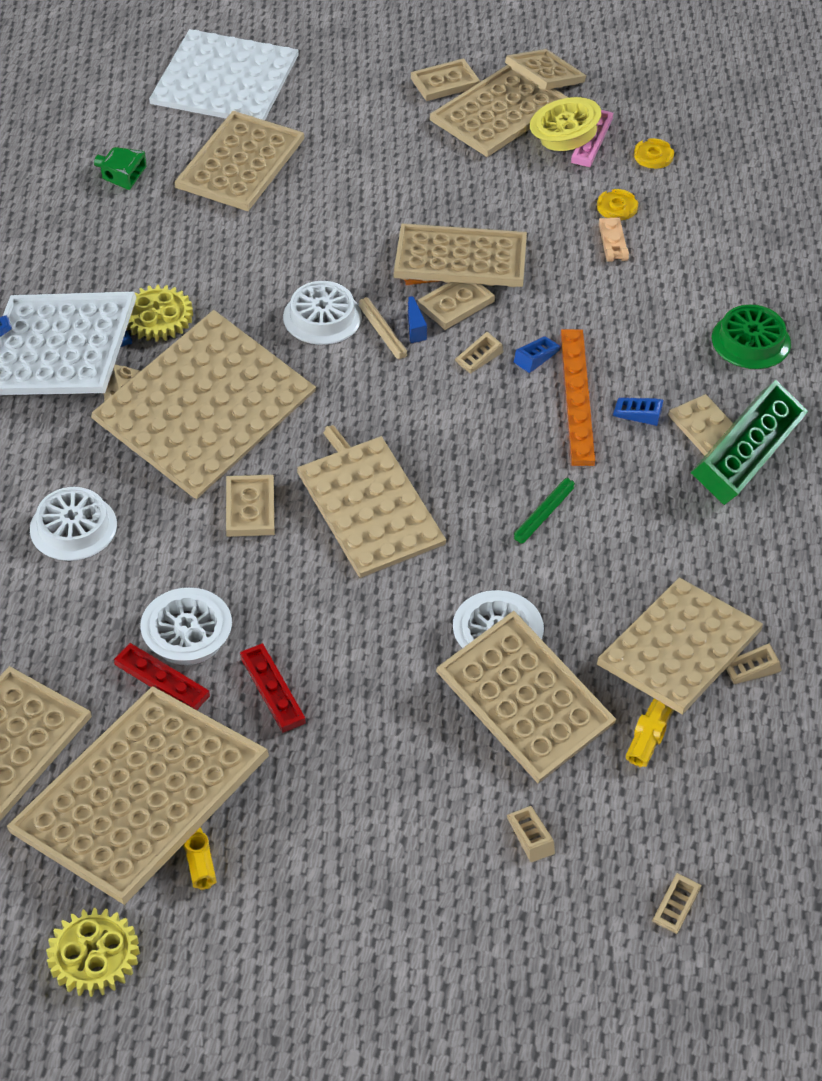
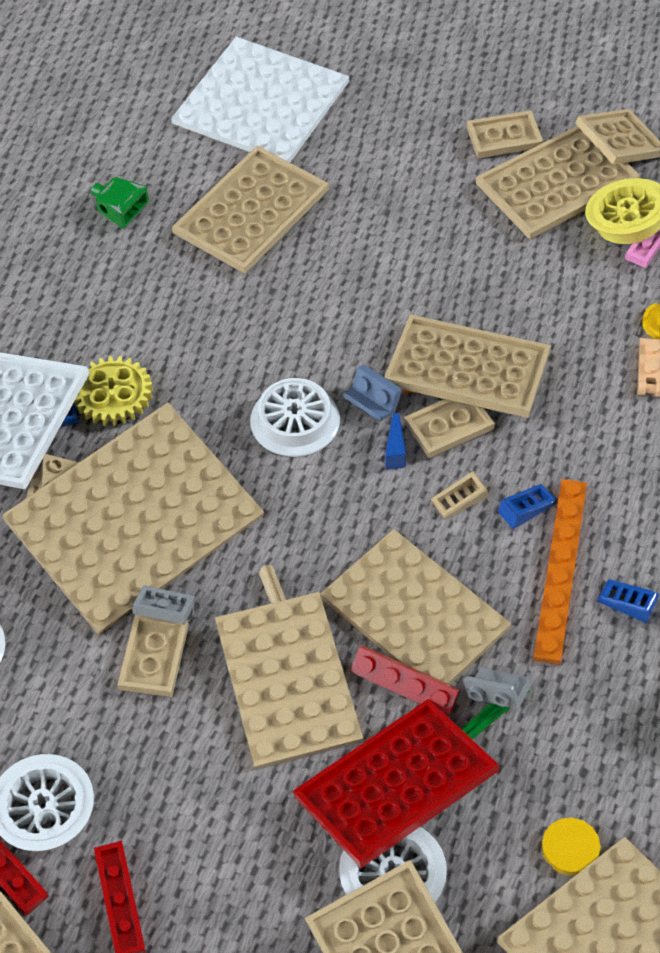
camera: 15 degrees right, 5 degrees up
(250, 464) = (164, 605): none -> light grey bracket
(382, 328) = (358, 446): tan axle -> none
(386, 285) = (373, 393): none -> sand blue bracket
(464, 443) = (415, 609): none -> tan plate
(470, 492) = (404, 679): none -> plate
(483, 563) = (395, 782): none -> red plate
(548, 485) = (497, 687): none -> light grey bracket
(636, 591) = (570, 845): none -> yellow tile

